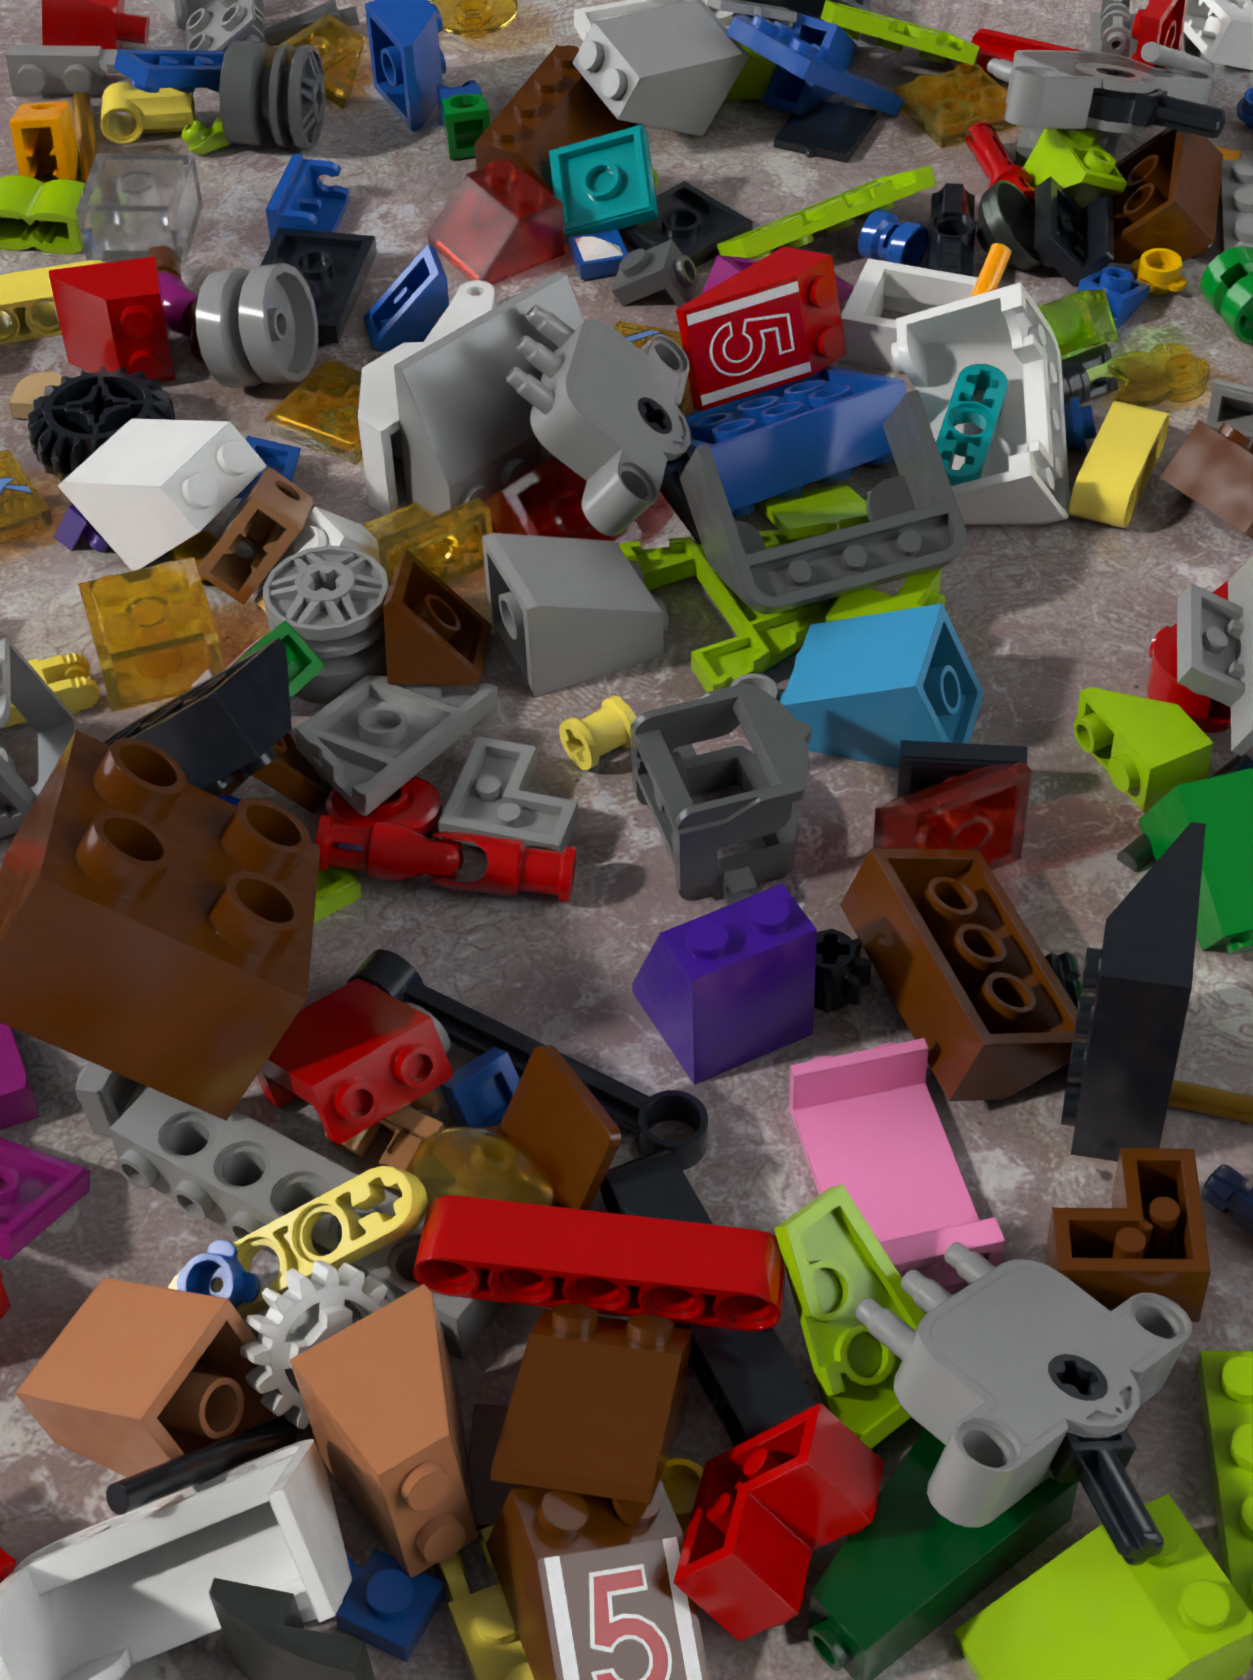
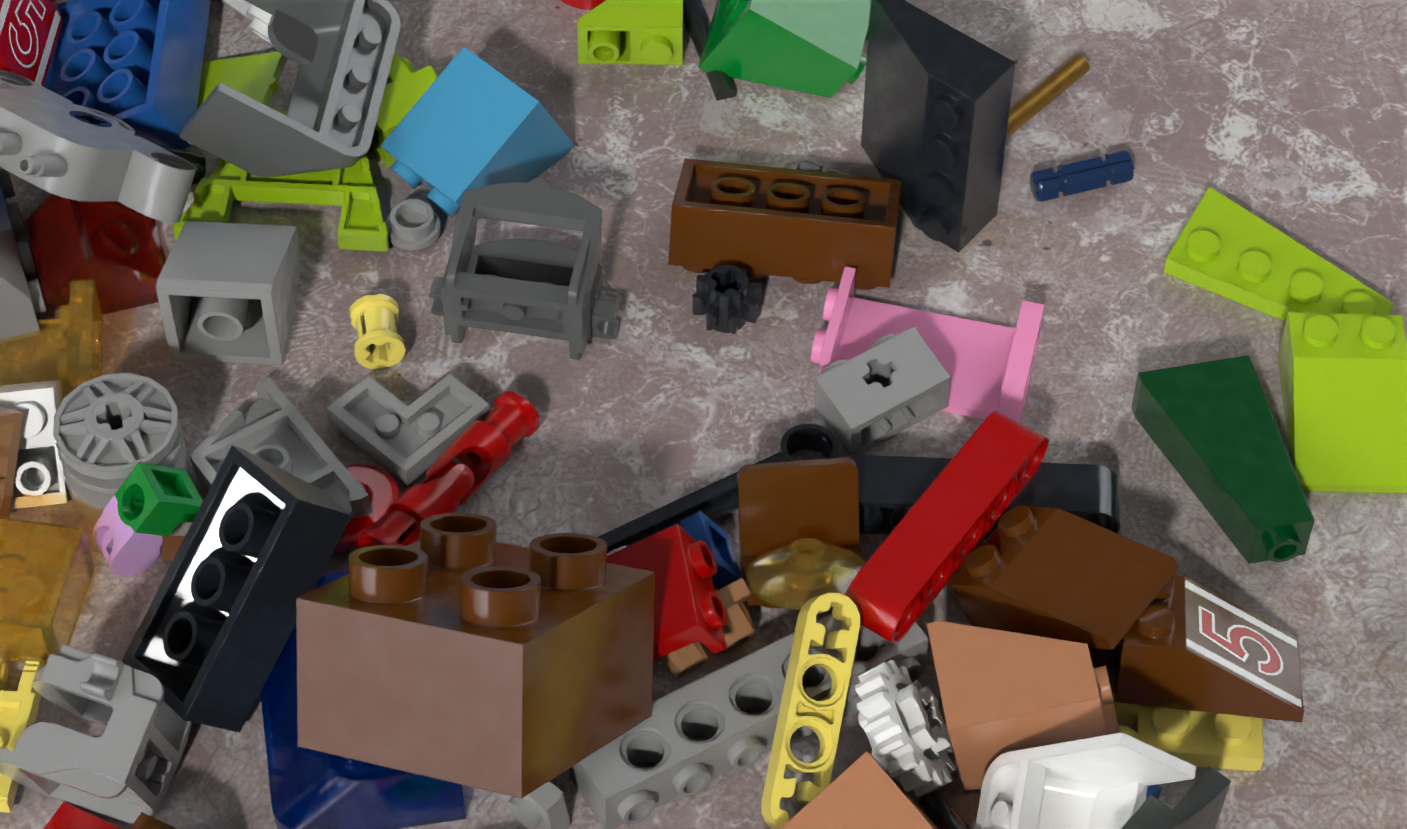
camera: 65 degrees left, 5 degrees up
(222, 1263) = (798, 762): blue plate -> none
(430, 629) = (205, 394): reddish brown slope -> none
(732, 983) = (710, 351): dark purple slope -> none
(765, 1514) = (1186, 519): red brick -> none
(785, 1144) = (881, 390): none -> light grey brick
(831, 1268) = (1065, 408): lime wing -> none
(931, 763) = (588, 137): black tile -> none
(965, 812) = (641, 161): clear red slope -> none
(1029, 1387) = (1182, 339): light grey piece -> none
(1146, 1240) = (1083, 236): reddish brown brick -> none

